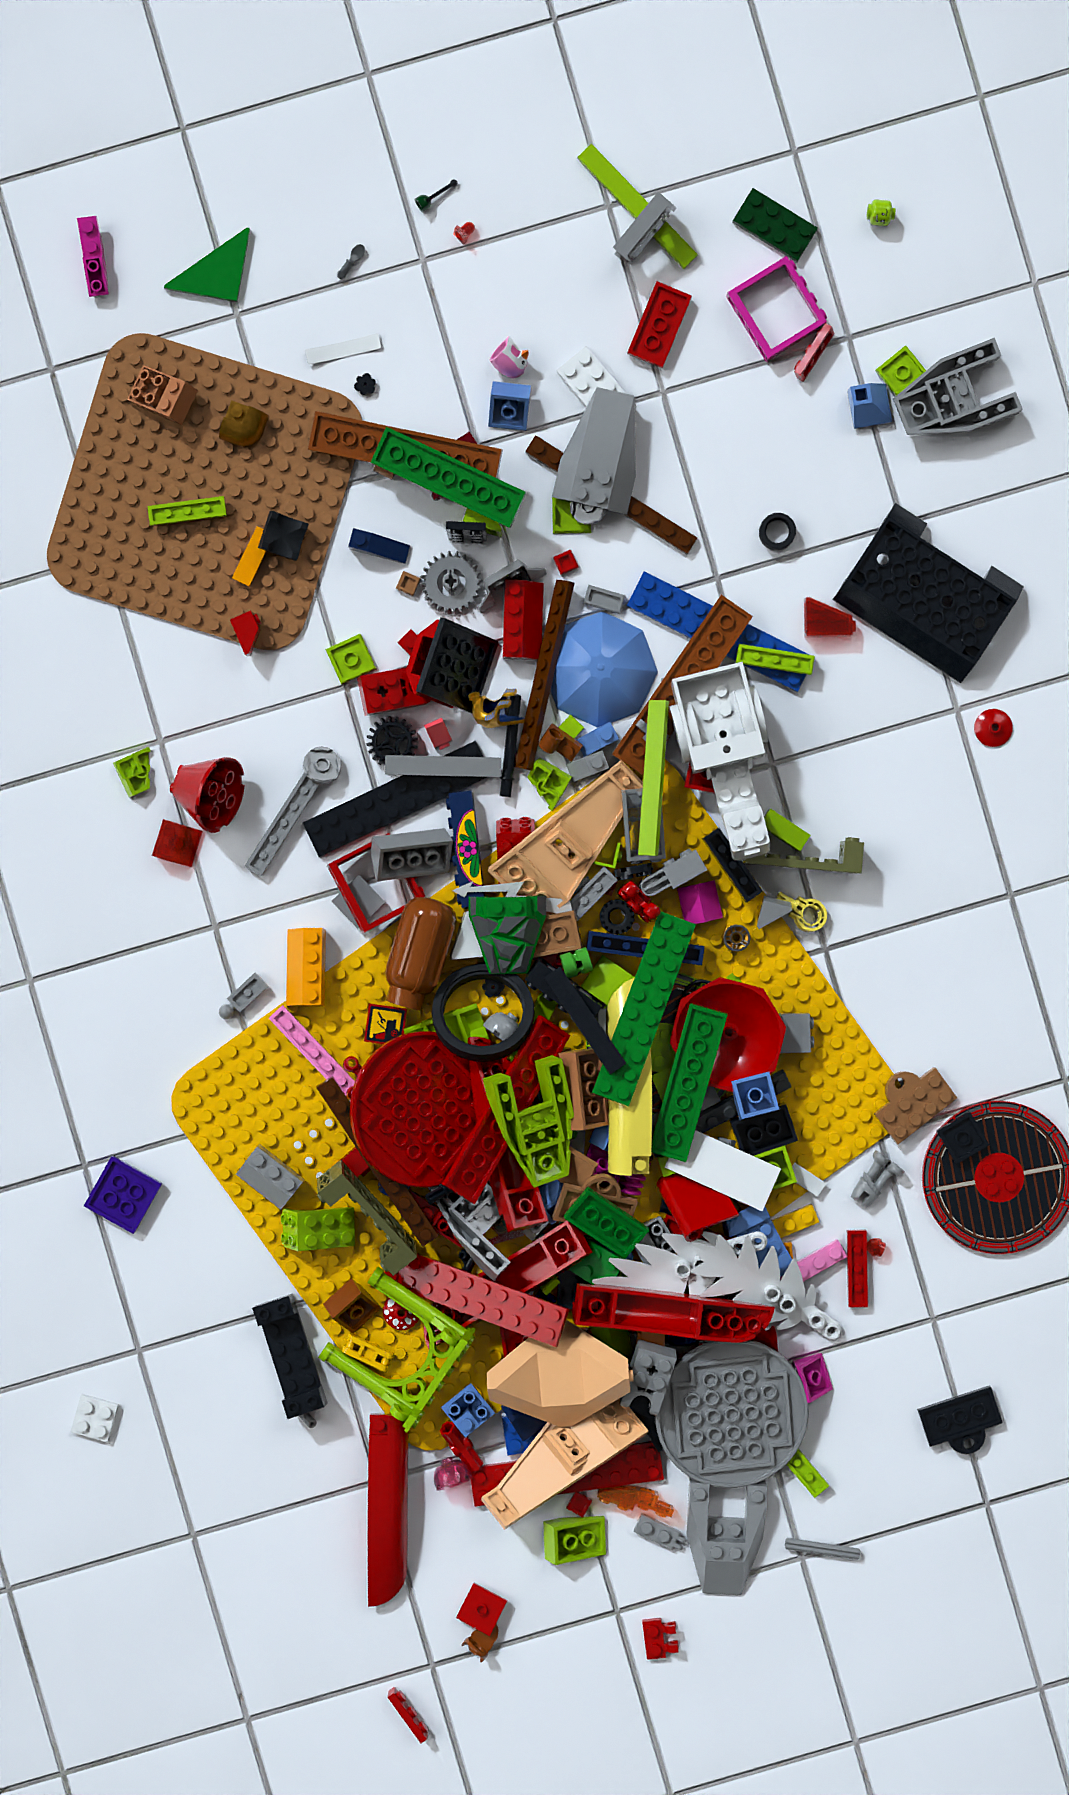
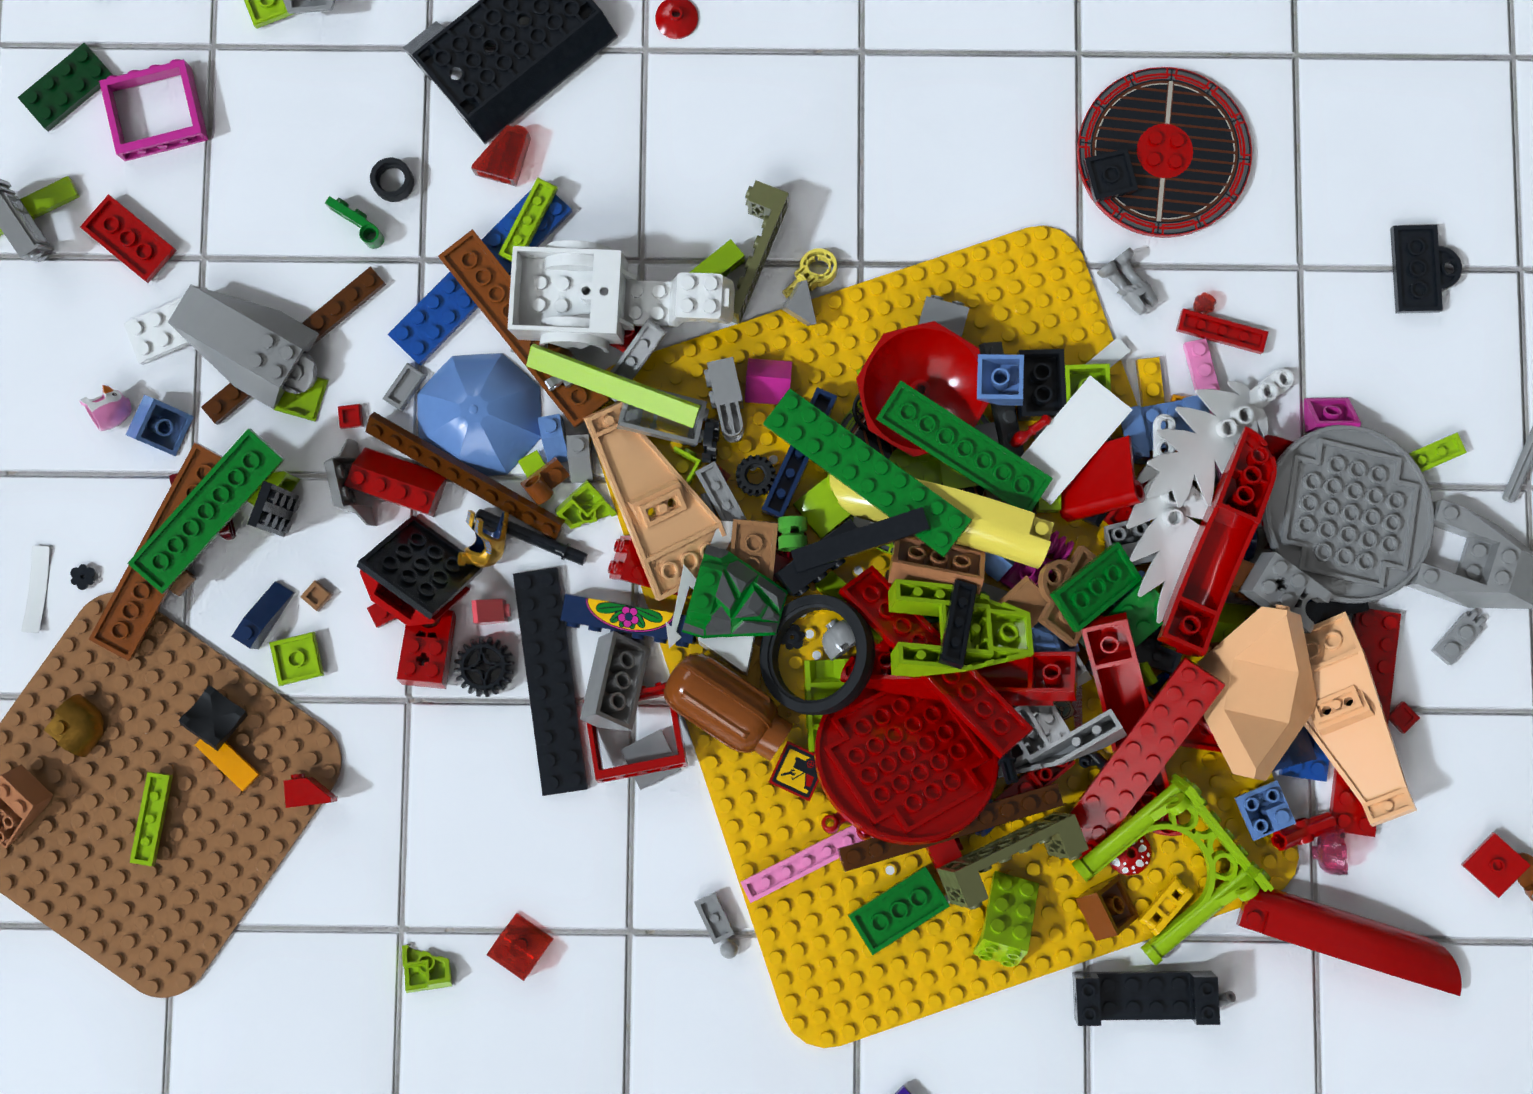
camera: 75 degrees left, 5 degrees down
(210, 791) = (471, 889): red cone -> none
(270, 1176) = (931, 957): light grey slope -> none
(281, 825) = (536, 817): light grey plate -> none
(299, 1139) = (898, 910): none -> green plate
(306, 967) = (705, 841): light orange slope -> none
(322, 765) = (485, 753): light grey tile -> none
(350, 659) = (378, 685): lime tile -> none
(351, 585) = (296, 659): none -> lime plate
(442, 766) = (527, 617): light grey tile -> none
(450, 563) = (310, 542): light grey gear -> none
(539, 1119) = (958, 624): none -> black tile
(574, 1538) = (1442, 735): lime slope -> none
(628, 1495) = (1409, 657): clear orange slope -> none
(639, 902) = (746, 444): red gear -> none
(689, 789) = (639, 350): none -> light grey tile
(714, 1127) = (1022, 436): none -> red piece
(734, 869) = (737, 333): black brick -> none
(735, 513) = (359, 219): none -> green plate
(743, 941) = (825, 347): wheel -> none
(813, 352) = (213, 84): plate -> none
(869, 405) = (288, 44): medium blue slope -> none
(913, 1103) = (1057, 217): medium nougat plate -> none

